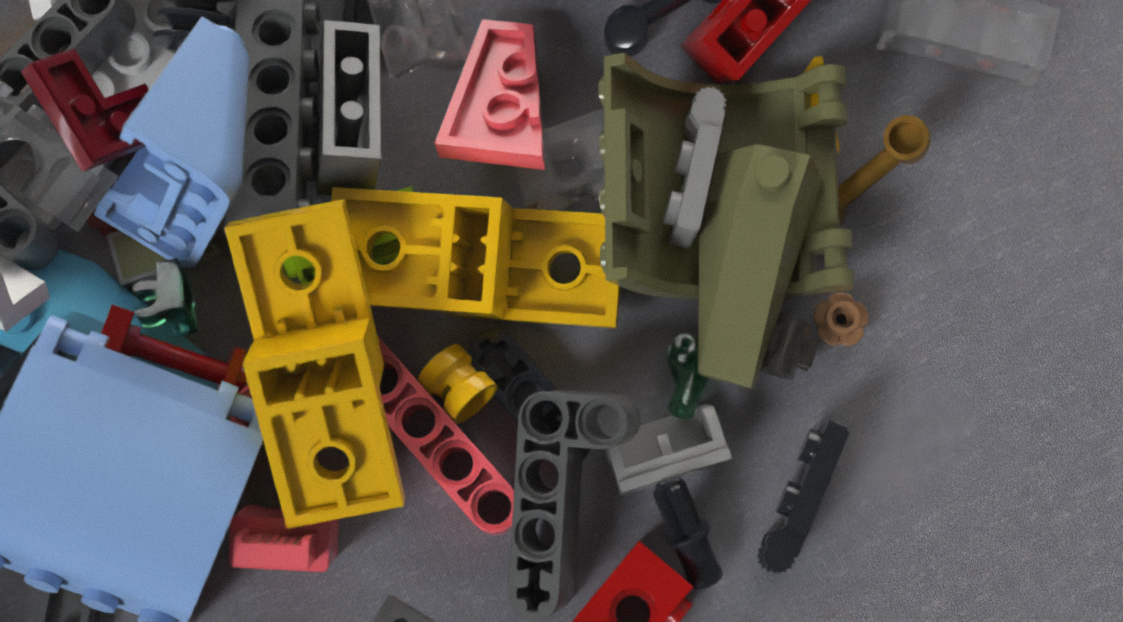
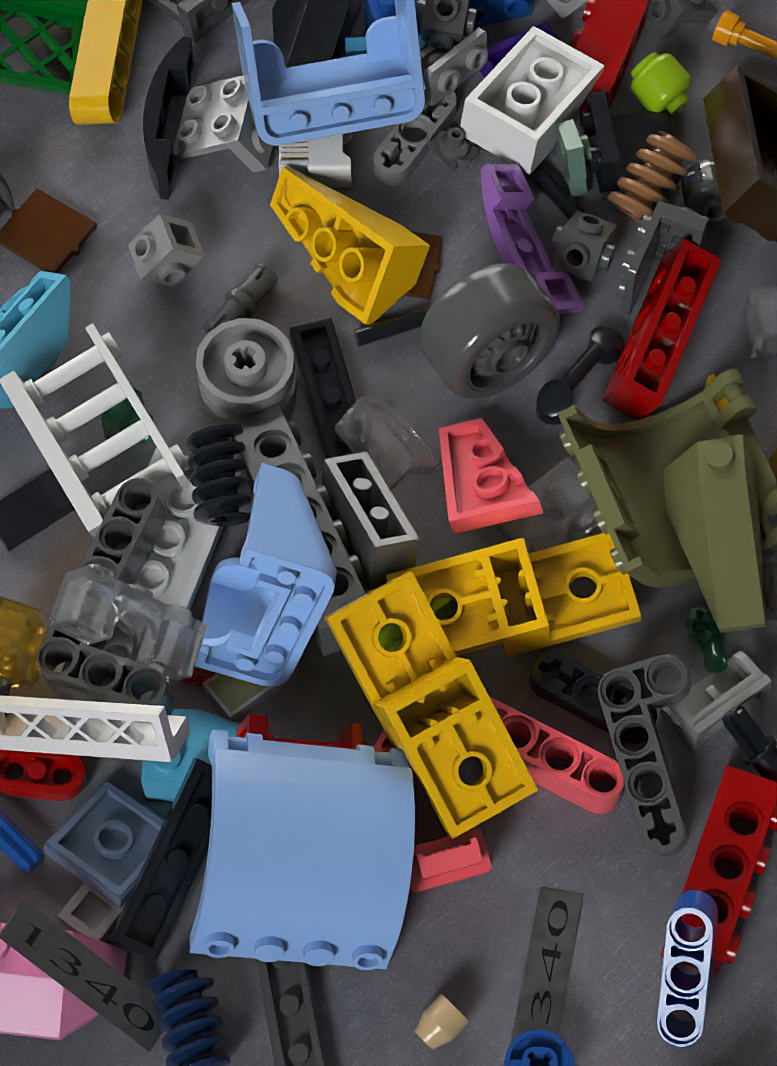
camera: 20 degrees left, 15 degrees down
(80, 112) = (181, 588): dark red tile -> none
(173, 299) = (281, 709): clear green tile -> none
(457, 383) = (536, 697): yellow wheel -> none
(696, 163) = (654, 478): light grey hinge -> none

